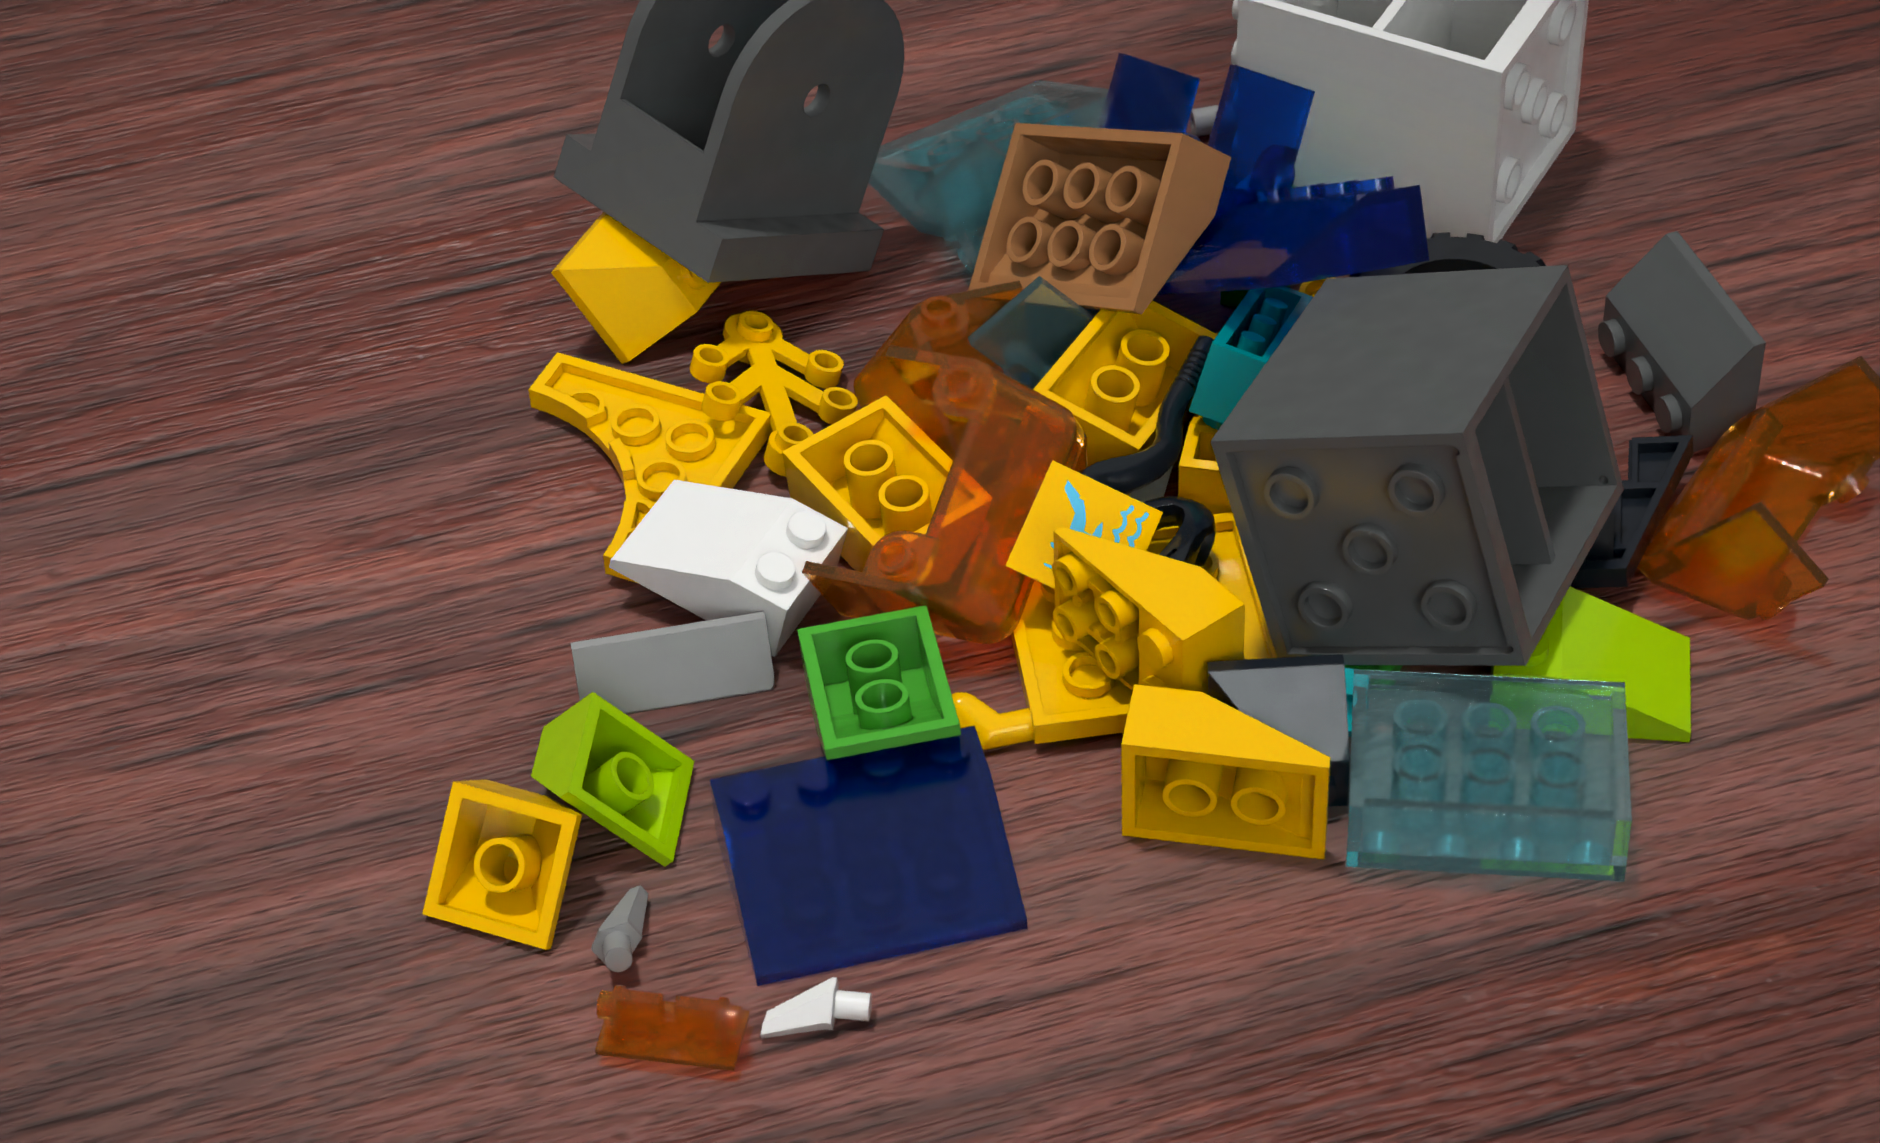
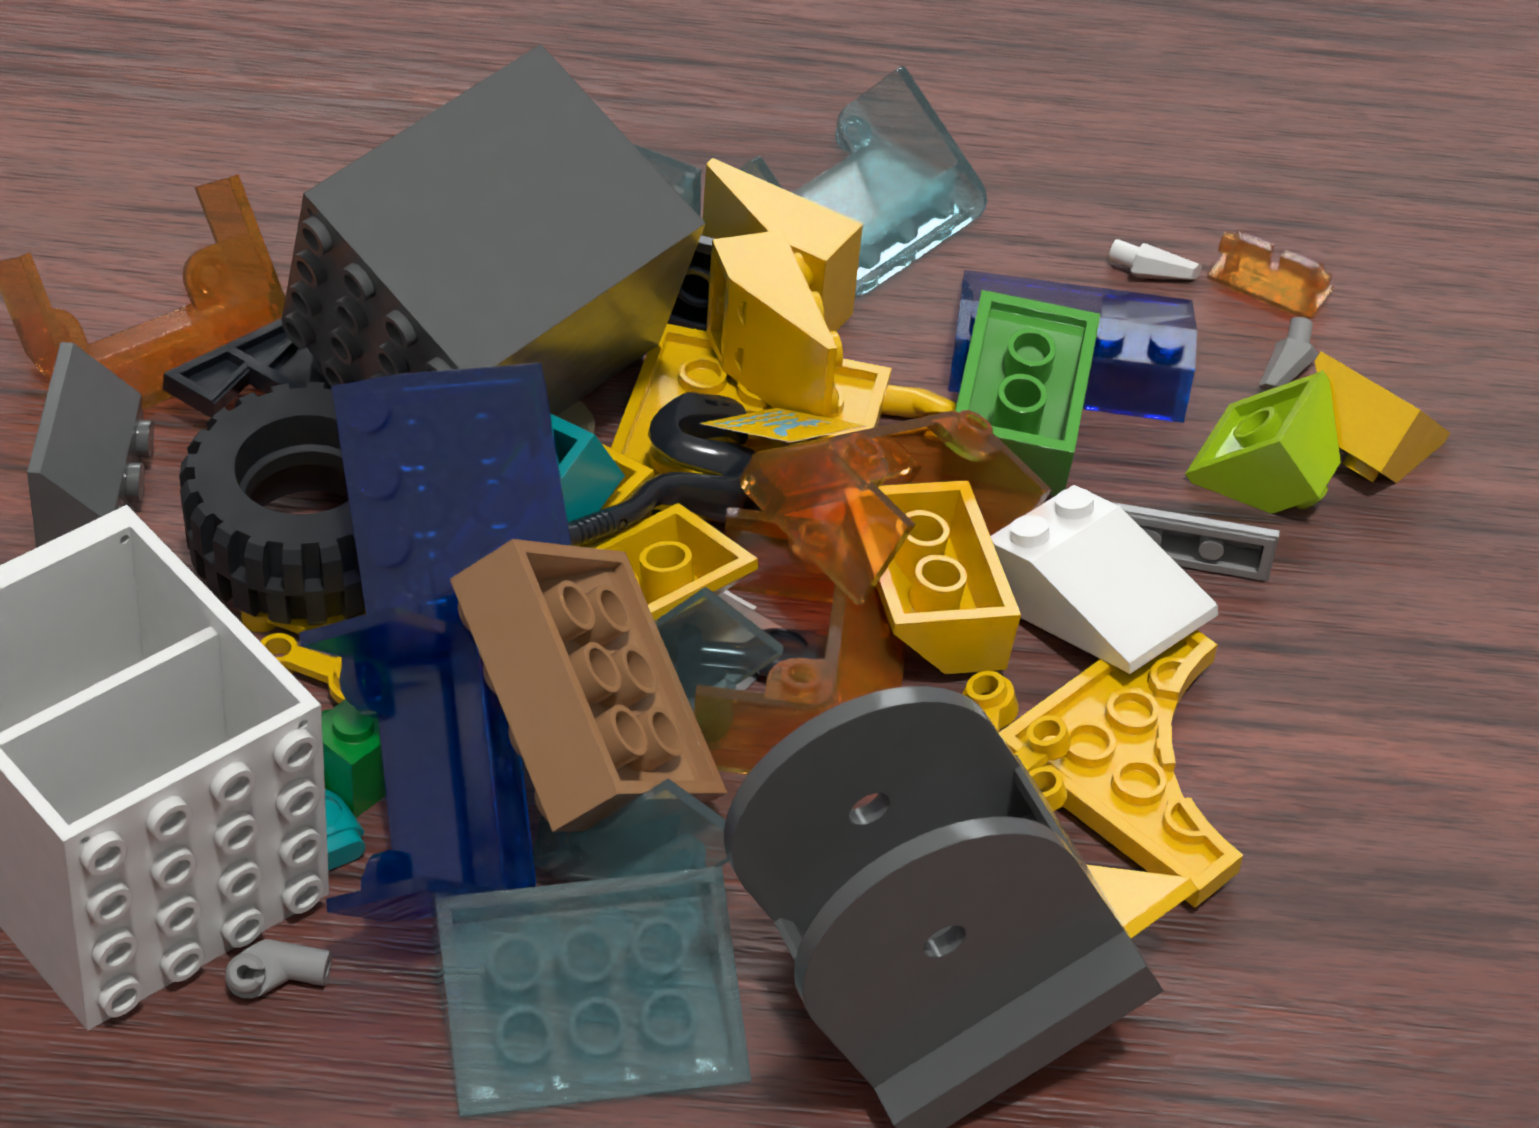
camera: 165 degrees left, 0 degrees up
(1190, 934) = (899, 181): none -> clear light blue windscreen

